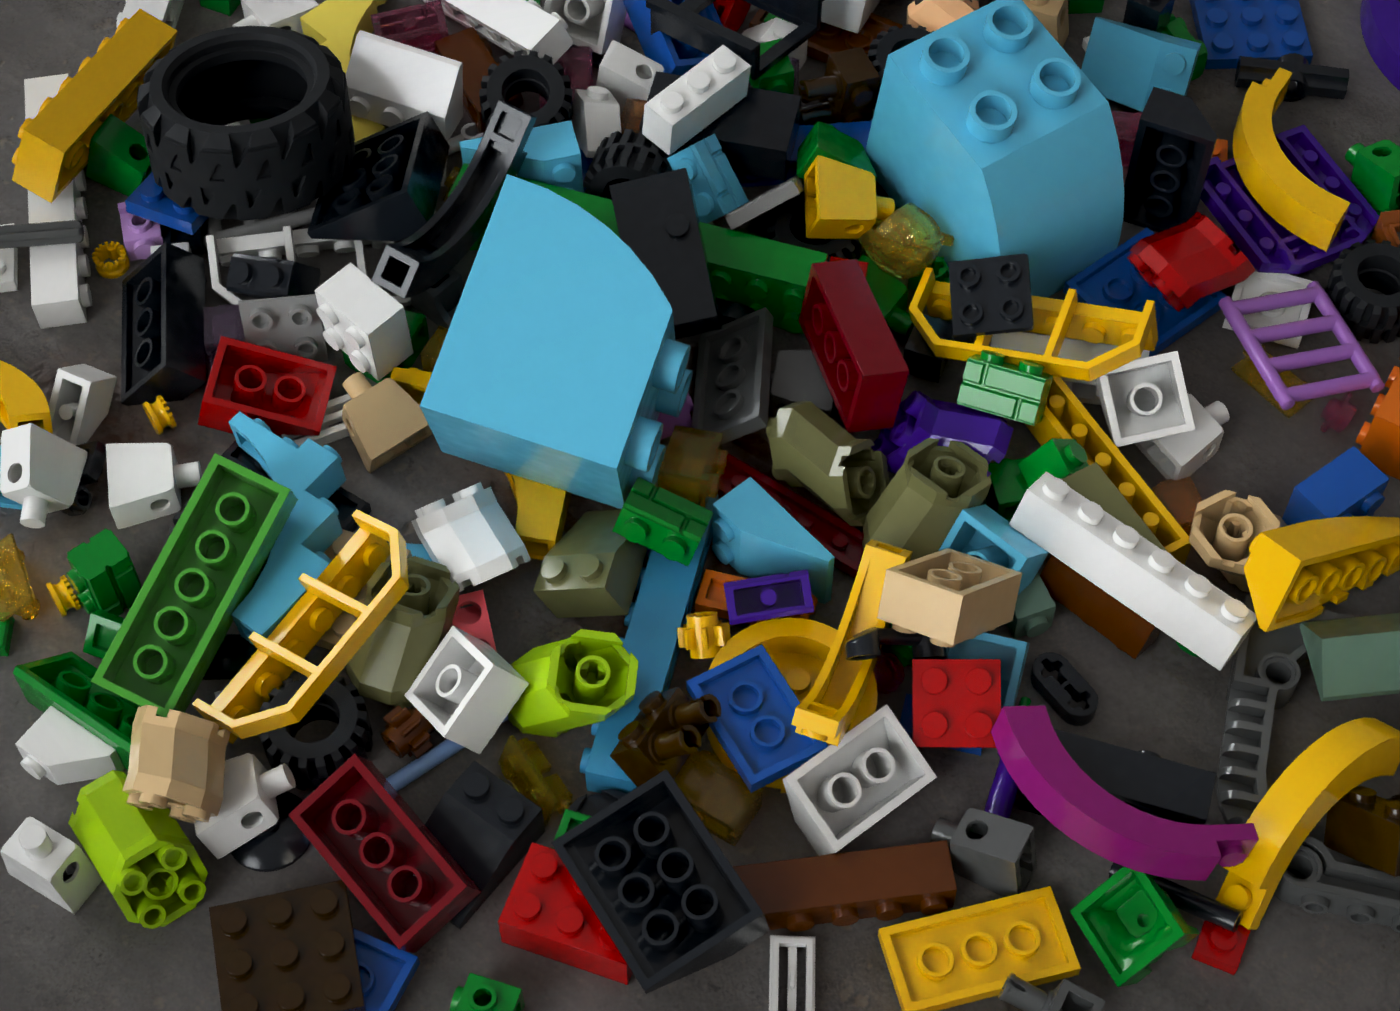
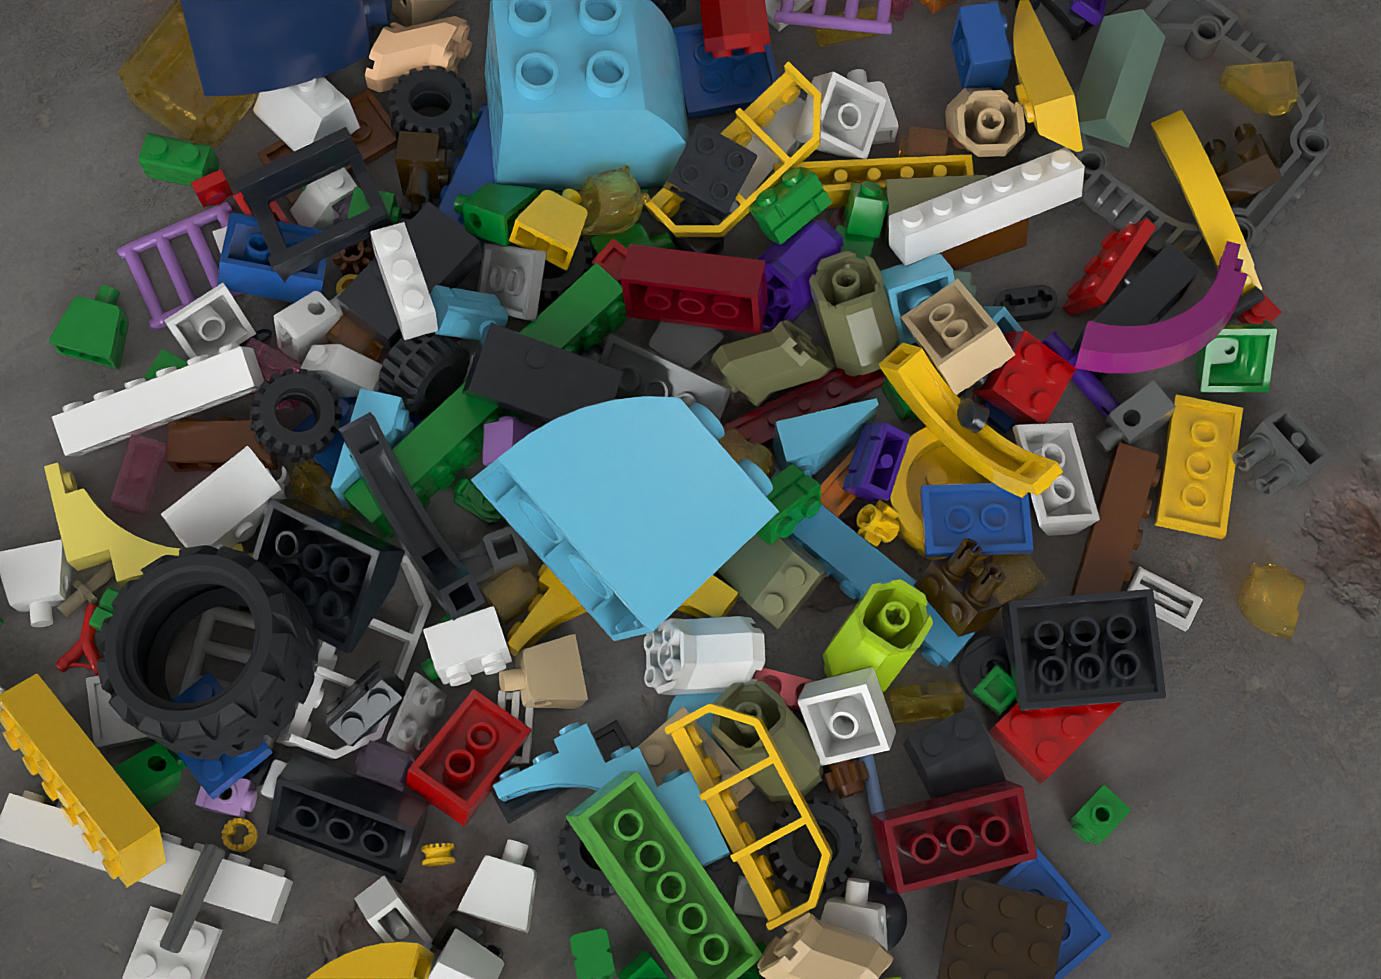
camera: 65 degrees left, 15 degrees up
(1159, 736) = (1108, 267): none -> red plate

